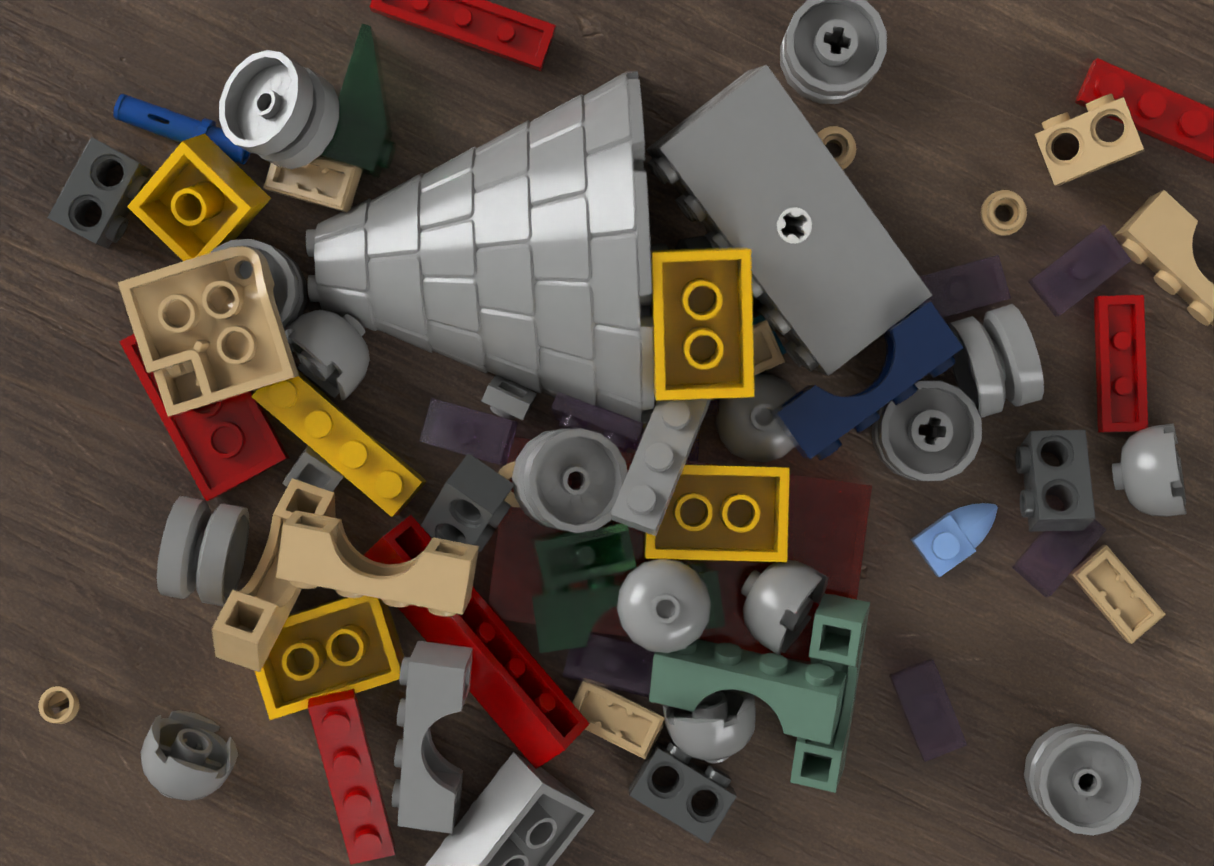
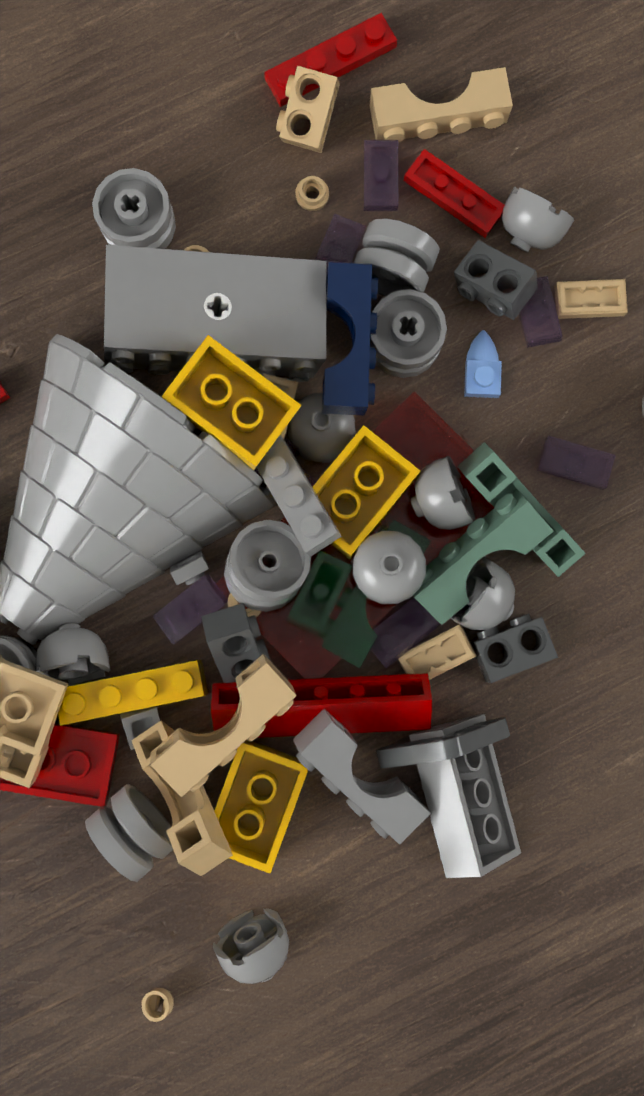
camera: 55 degrees left, 5 degrees down
(351, 776) = (346, 849): red plate -> none
(526, 800) = (444, 747): none -> dark grey beam
(579, 414) = (263, 510): clear purple plate -> none

